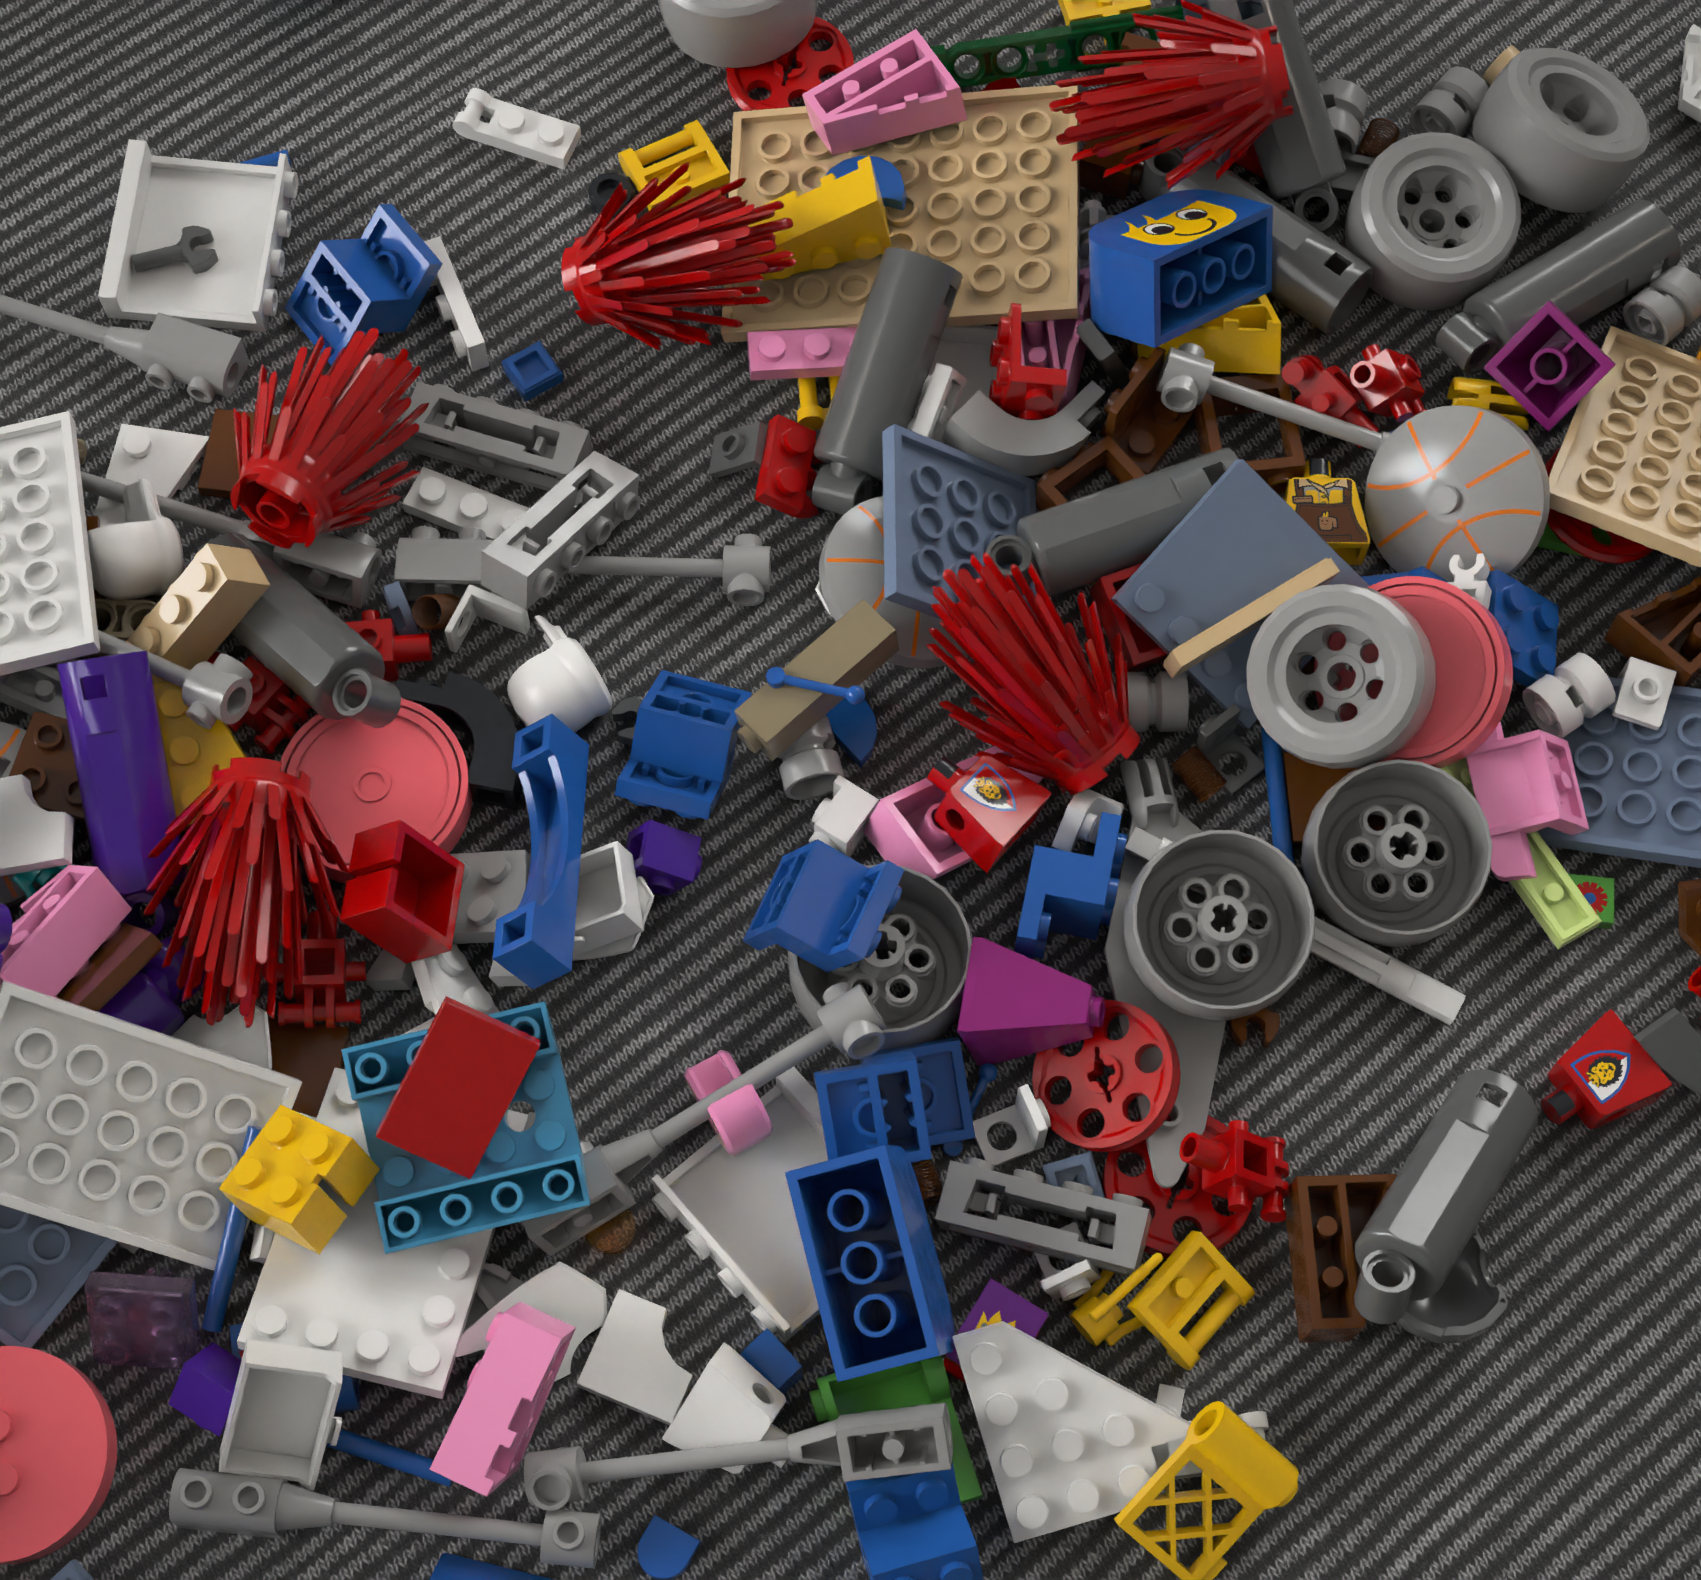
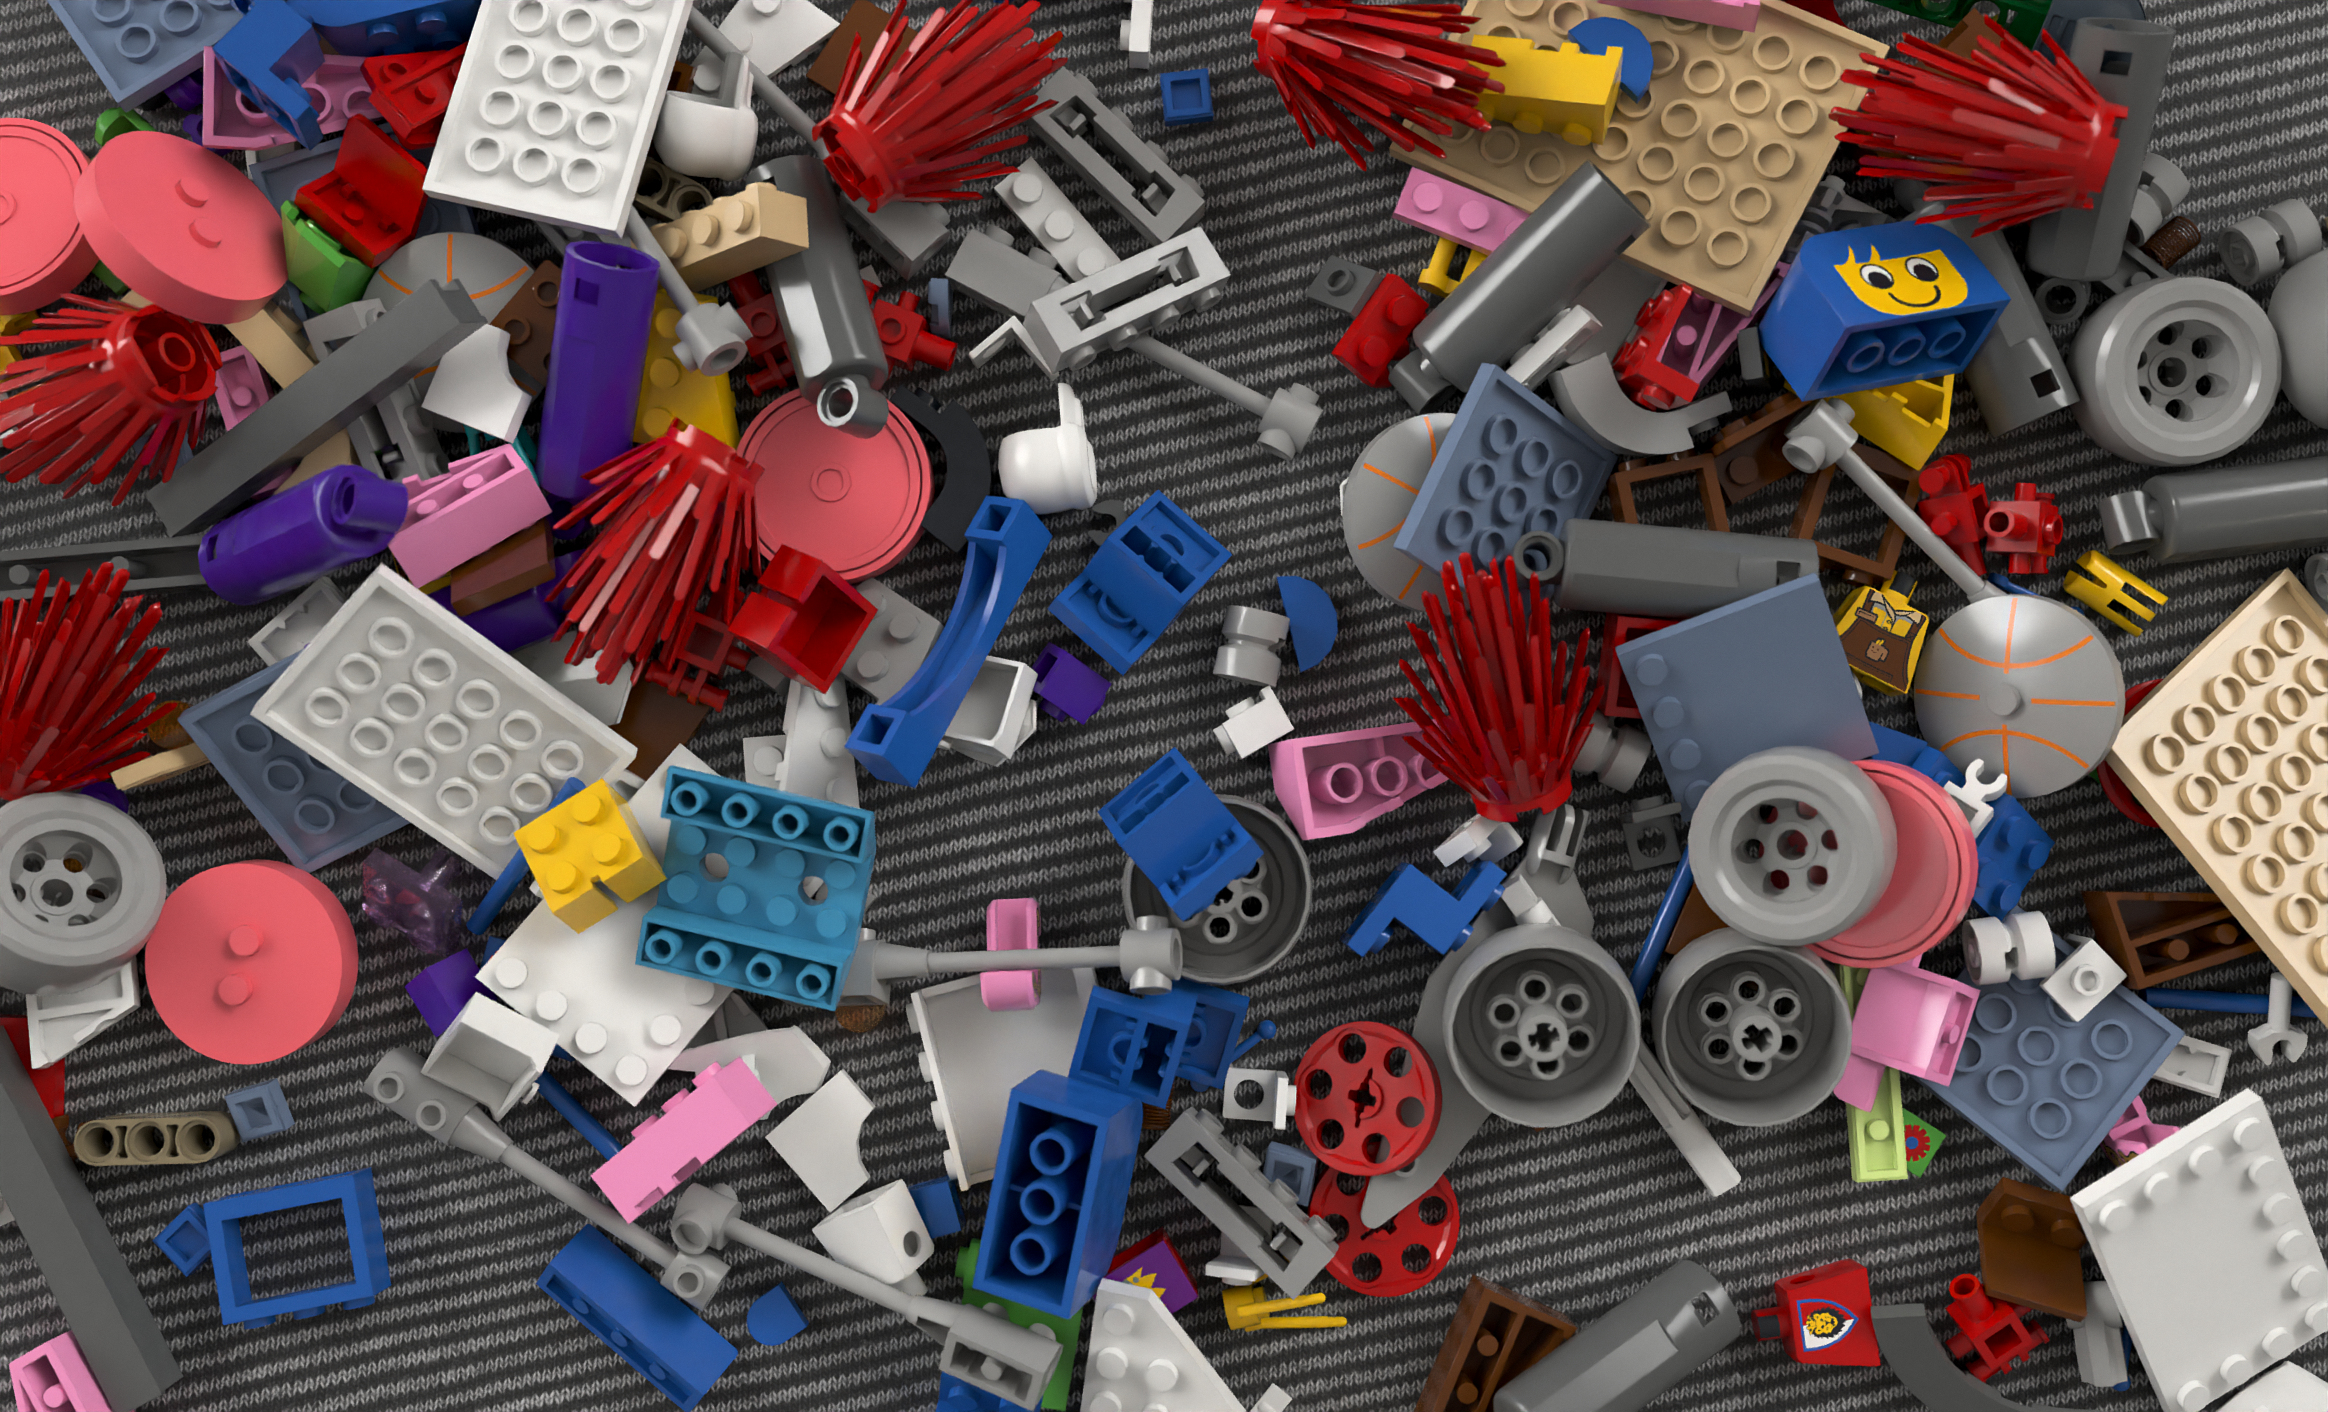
camera: 30 degrees right, 20 degrees up
(425, 610) = (973, 315): reddish brown piece -> none
(458, 1087) = (757, 856): red tile -> none
(776, 678) = (1249, 579): blue hinge -> none
(839, 657) = (1288, 591): dark tan brick -> none
(986, 806) = (1387, 794): red torso -> none
(1022, 1005) = (1324, 1000): magenta slope -> none
(1181, 1289) = (1335, 1333): yellow plate -> none
(1196, 777) = (1611, 847): reddish brown piece -> none
(1241, 1168) = (1441, 1249): red piece -> none
(1246, 618) = (1739, 738): tan tile -> none
(1549, 365) = (2195, 605): magenta slope -> none

